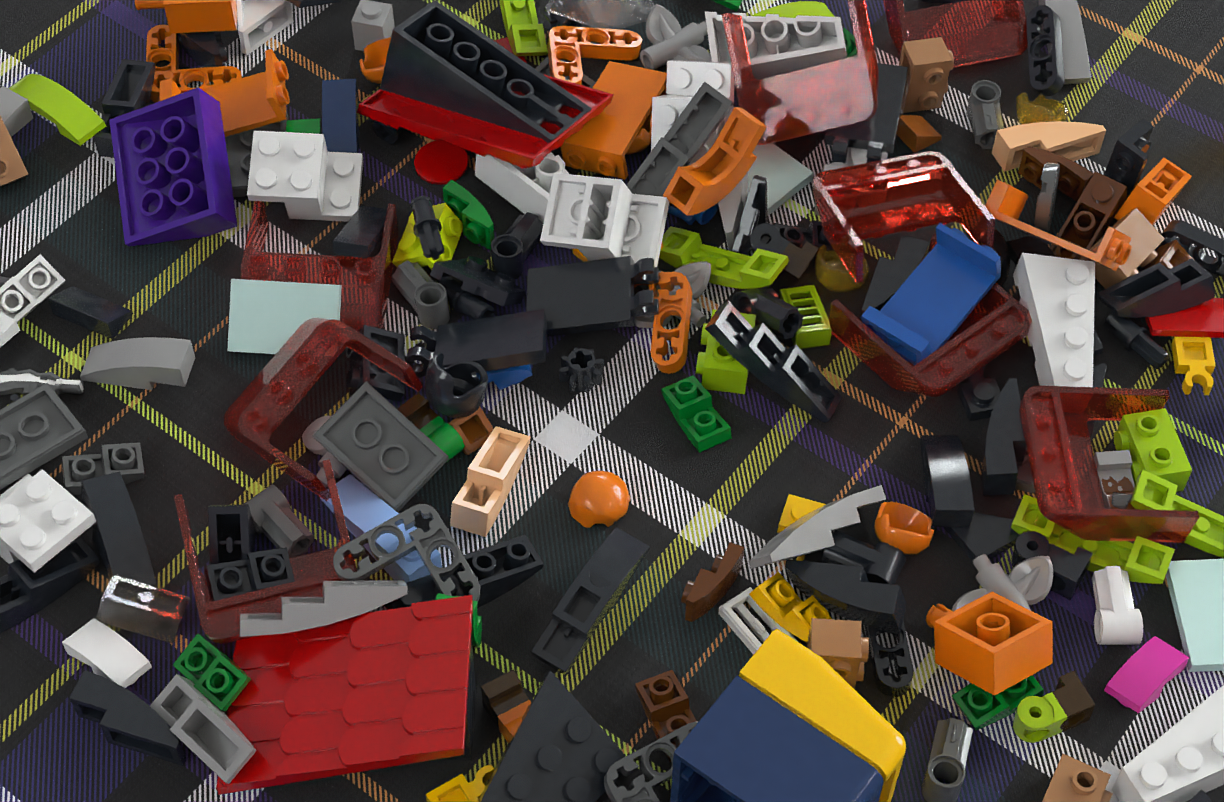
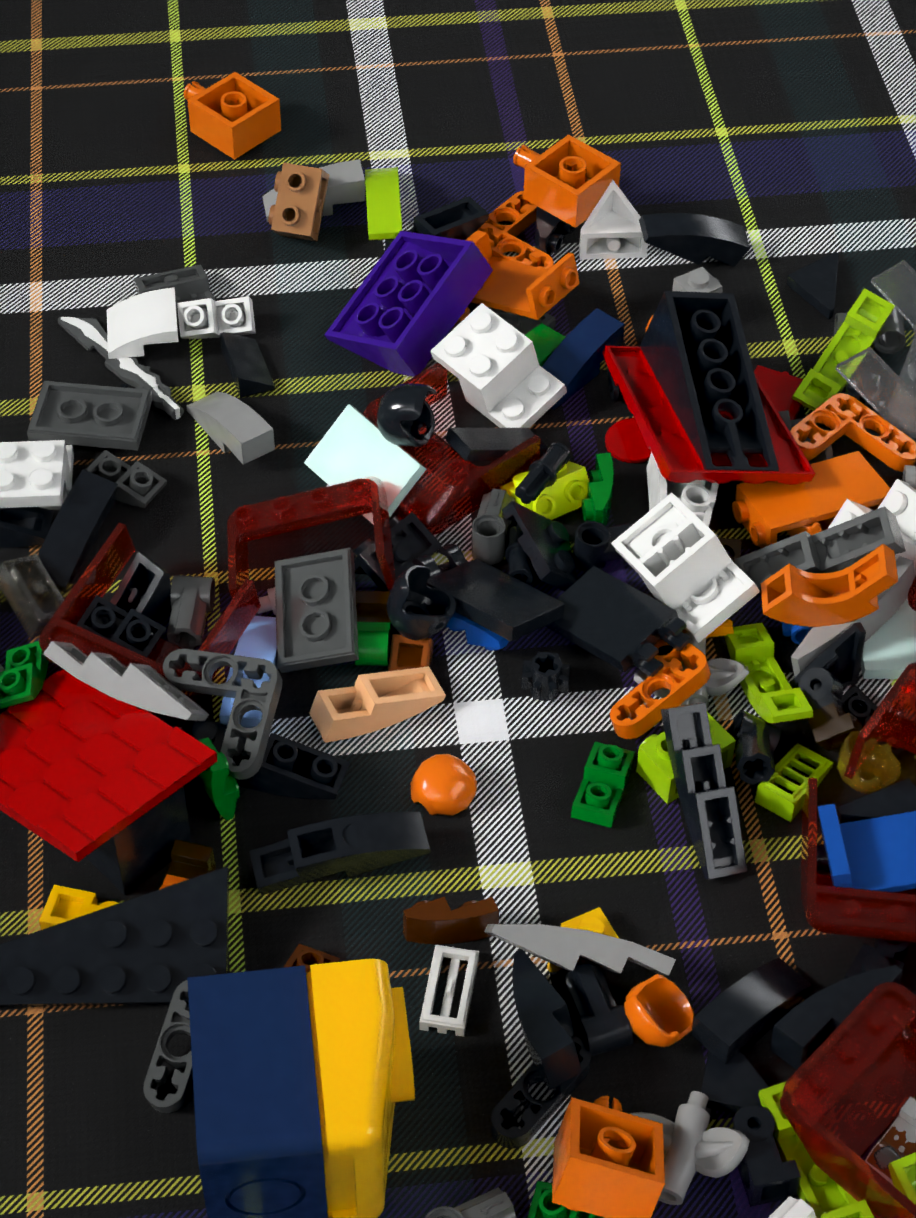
camera: 45 degrees right, 5 degrees down
(290, 249) = (404, 413): none -> black helmet
(785, 607) = (487, 997): yellow slope -> none
(840, 646) = (463, 1056): medium nougat brick -> none

